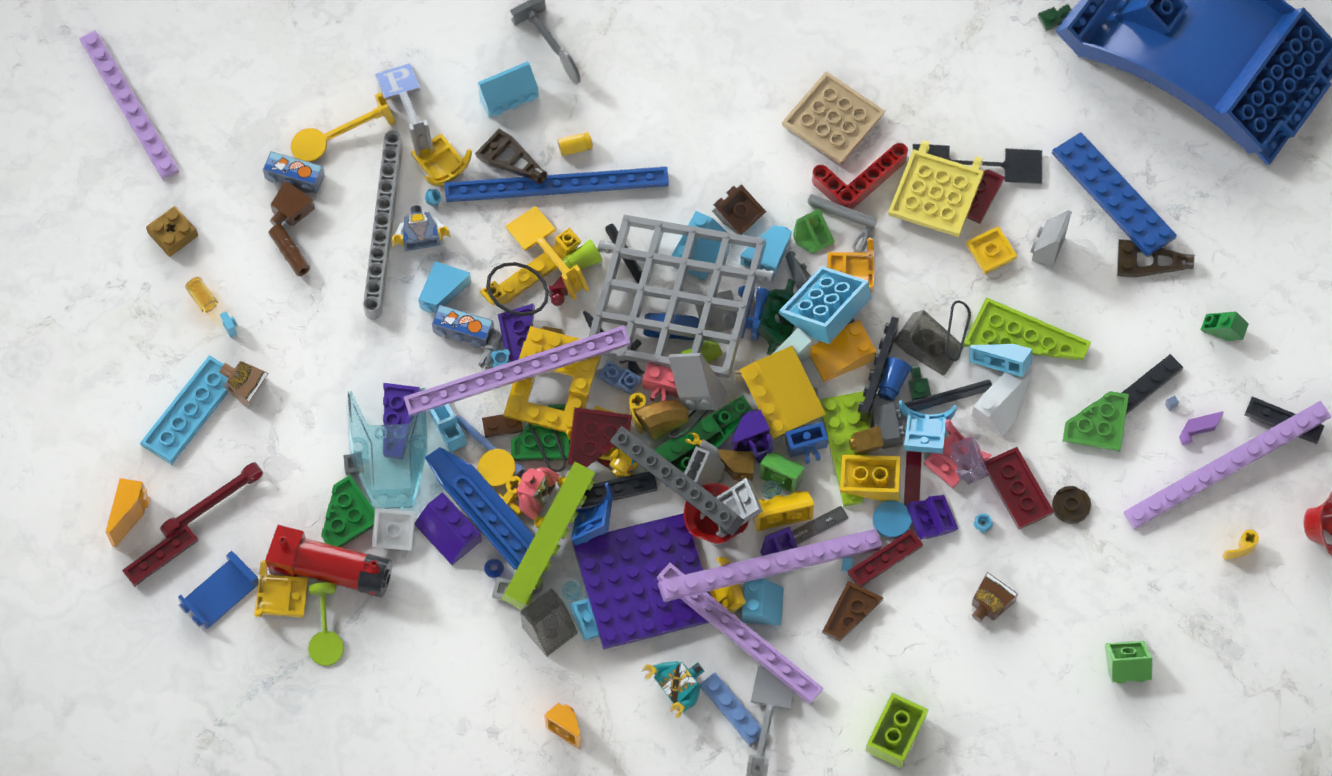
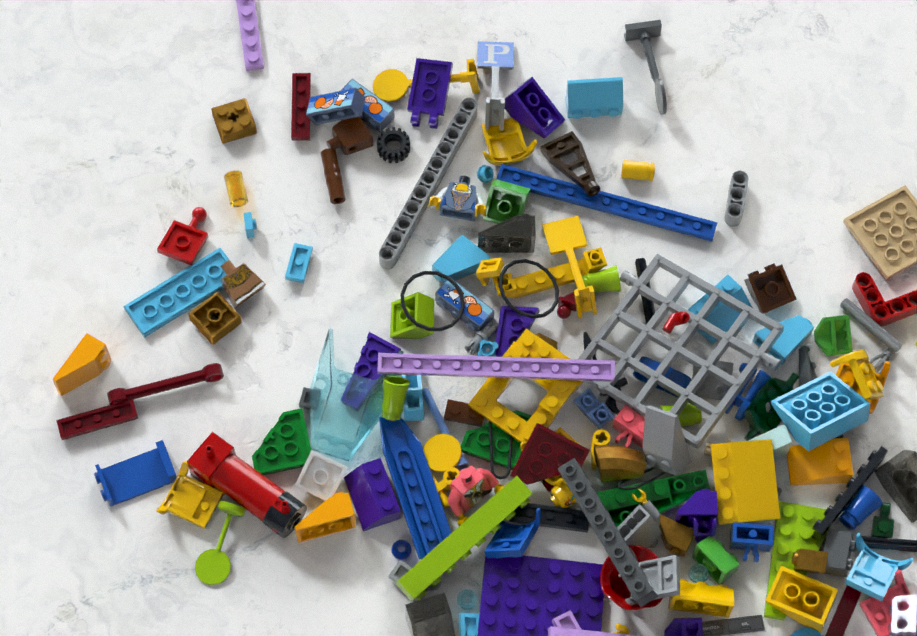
camera: 20 degrees right, 0 degrees up
(172, 361) = (184, 241): none -> red plate
(230, 411) = (219, 308): none -> pearl gold brick
(231, 195) = (300, 99): none -> dark red plate
(266, 183) = (335, 106): none -> brick
(290, 343) = (299, 263): none -> medium azure plate
(337, 210) = (393, 135): none -> black tyre
(349, 136) = (429, 90): none -> dark purple tile
(418, 354) = (420, 308): none -> lime slope
(419, 561) = (329, 518): none -> light orange slope
(421, 355) = (443, 276): none -> black piece
(432, 432) = (394, 396): none -> lime plant
(454, 120) = (533, 108): none -> dark purple slope
(464, 218) = (505, 201): none -> bright green slope
(474, 283) = (489, 268): none -> yellow bracket
(481, 246) = (509, 236): none -> clear smoke slope
(665, 268) = (675, 319): none -> red arm
(676, 145) = (733, 205): none -> light grey beam
(852, 256) = (863, 372): none -> yellow piece

